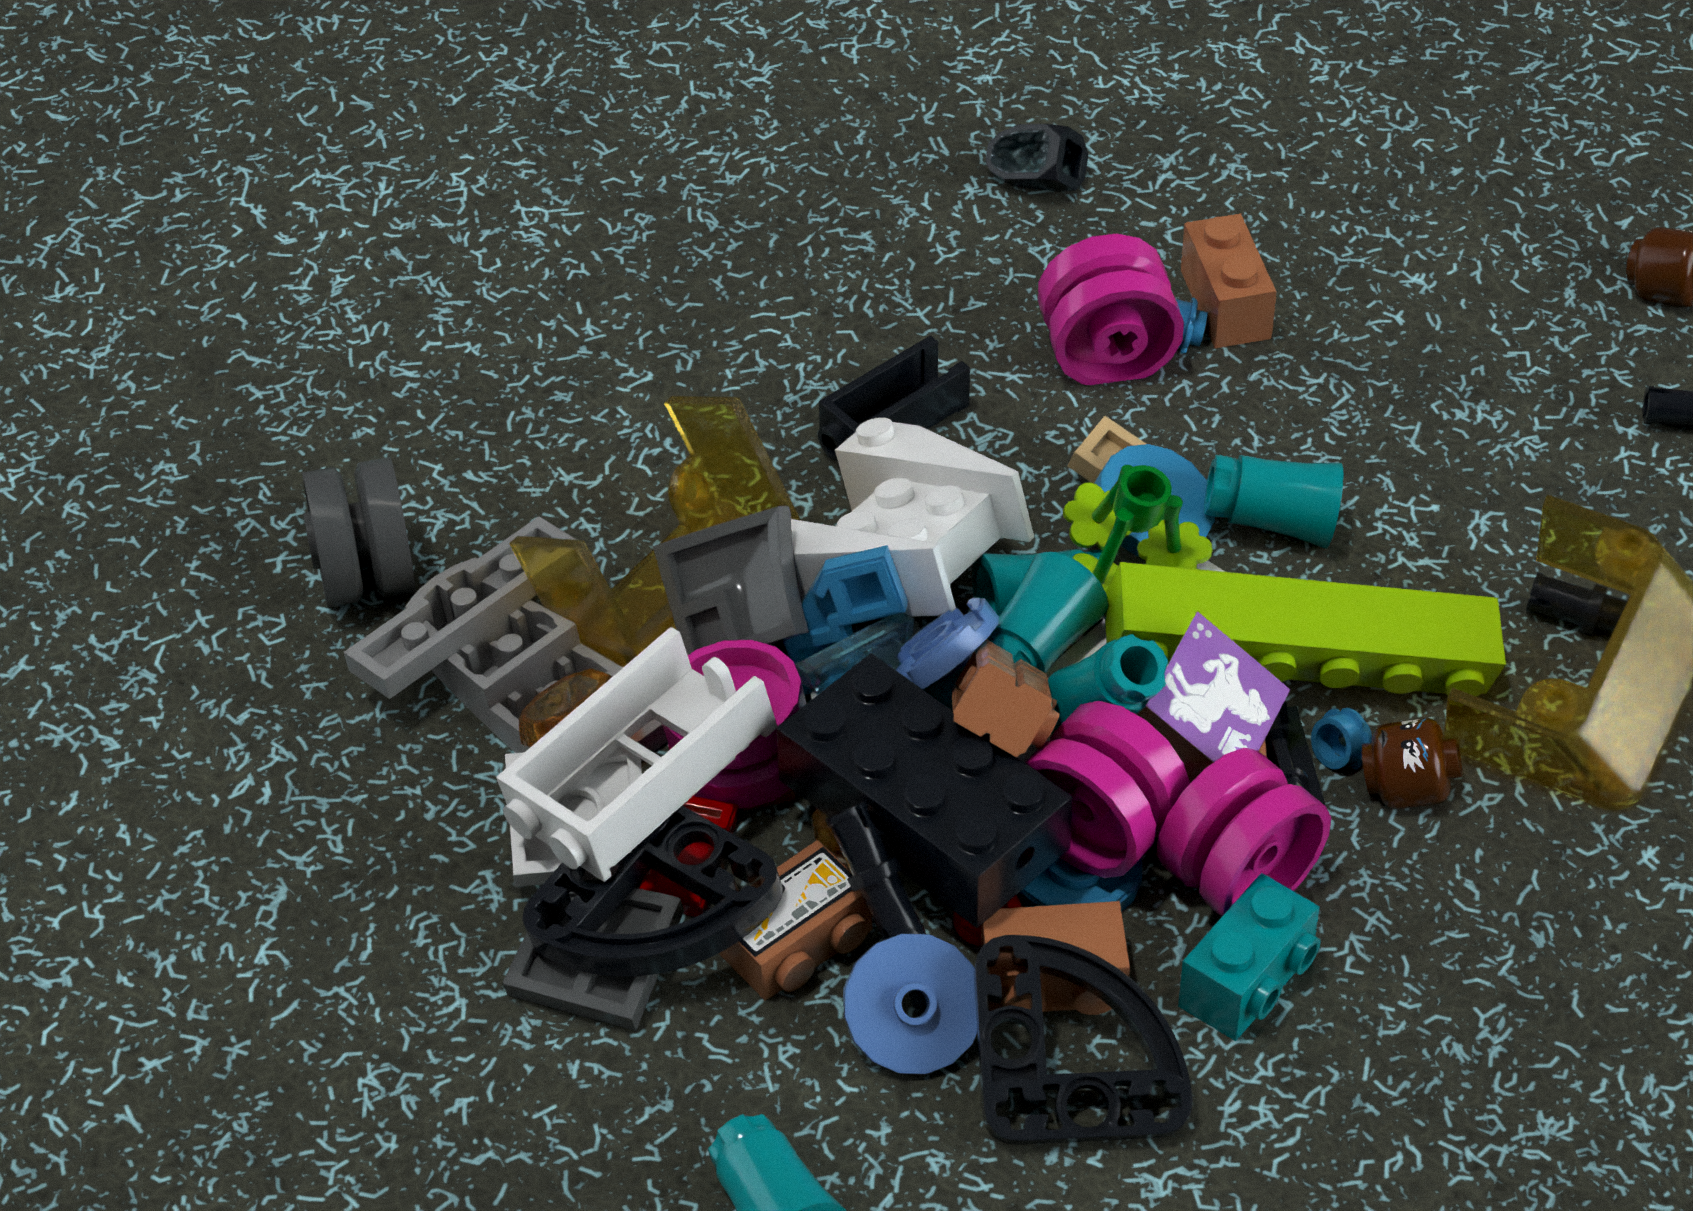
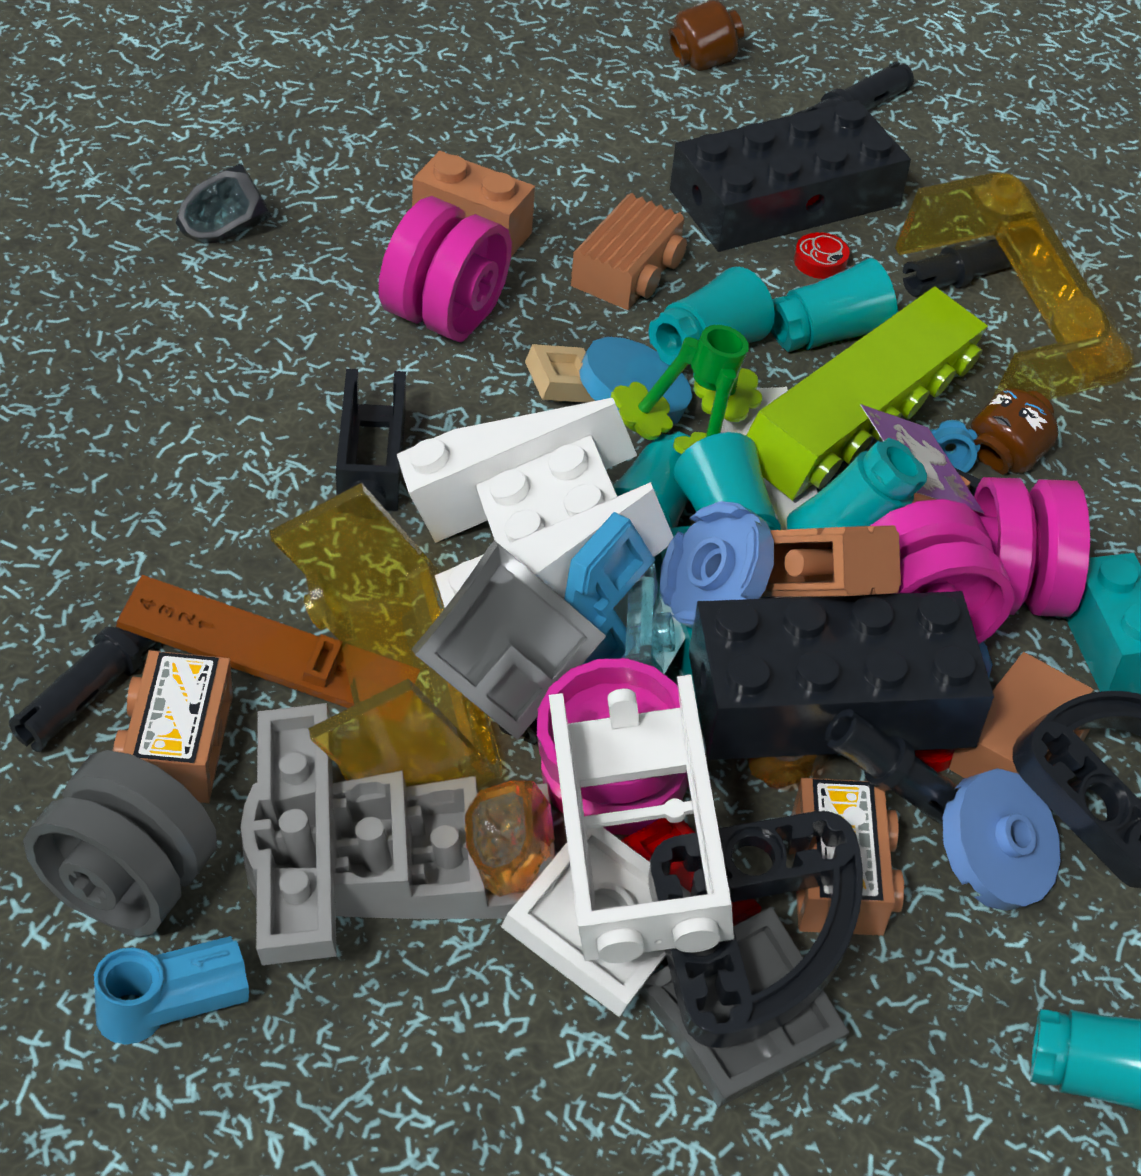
camera: 55 degrees left, 0 degrees up
(281, 639) = (169, 985): none -> dark azure piece
(503, 493) = (179, 717): none -> brick
(509, 426) = (73, 691): none -> black pin
(614, 468) = (249, 640): none -> dark orange piece
(1309, 402) = (629, 252): none -> nougat brick
(1406, 557) = (835, 307): none -> teal plant
(1490, 520) = (821, 255): none -> red tile
(1548, 430) = (788, 174): none -> black brick

